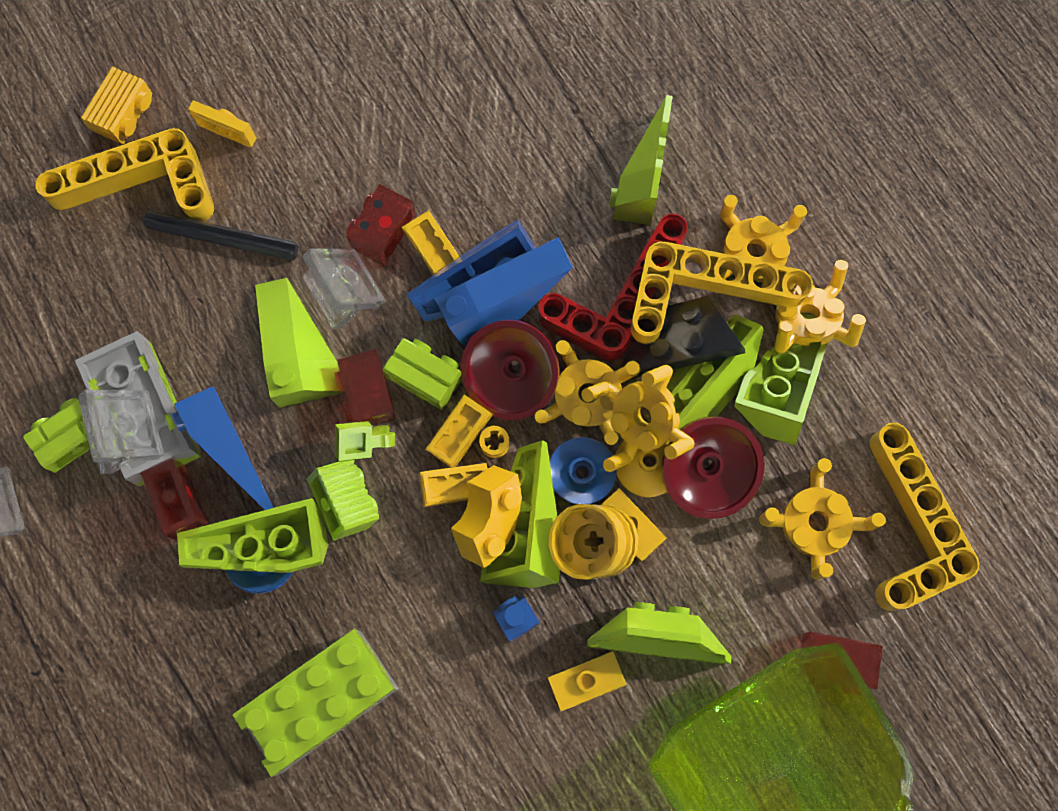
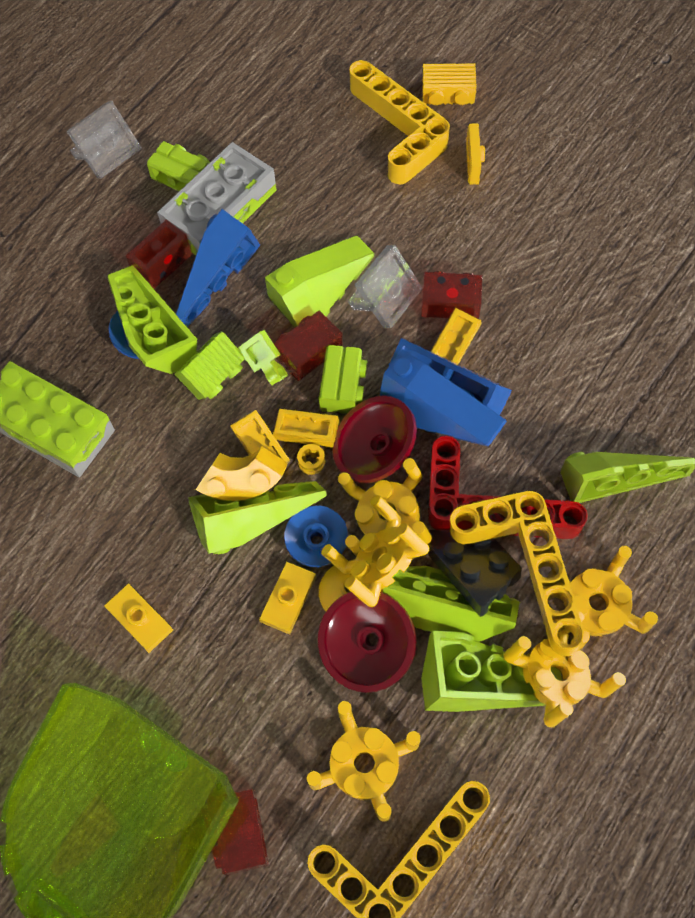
camera: 65 degrees right, 10 degrees down
(120, 427) = (189, 184): clear bracket -> none
(221, 235) = (384, 194): black axle -> none
(516, 617) = (167, 536): blue brick -> none
(575, 541) = (253, 564): yellow wheel -> none
(660, 634) = (200, 661): lime wedge -> none

